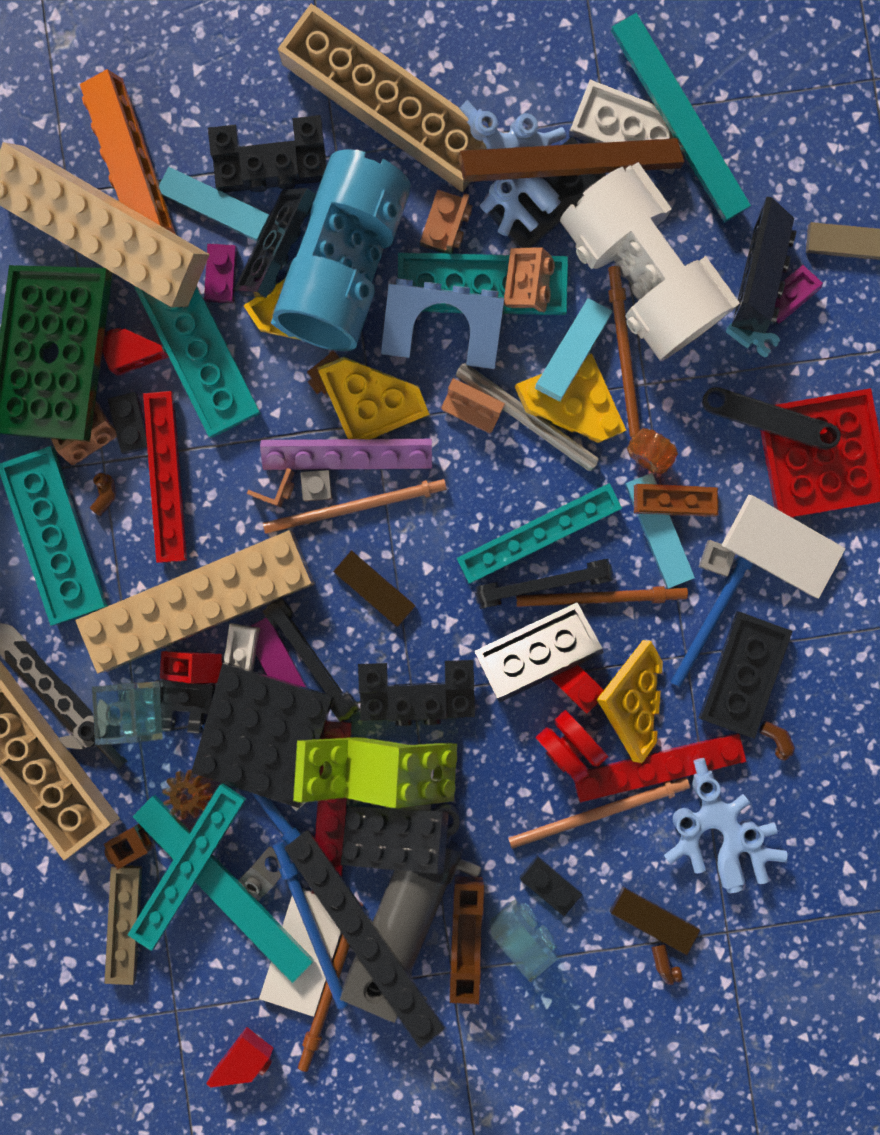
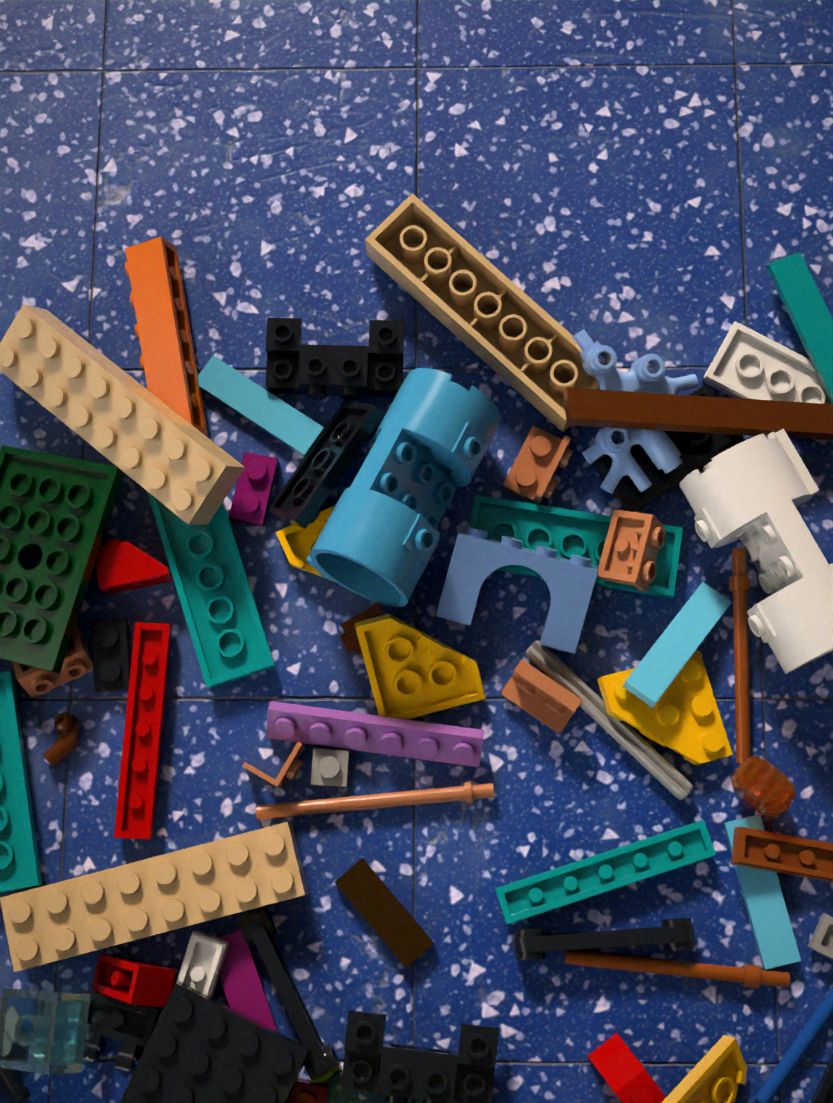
camera: 10 degrees right, 10 degrees down
(538, 652) = (585, 1030): plate -> none

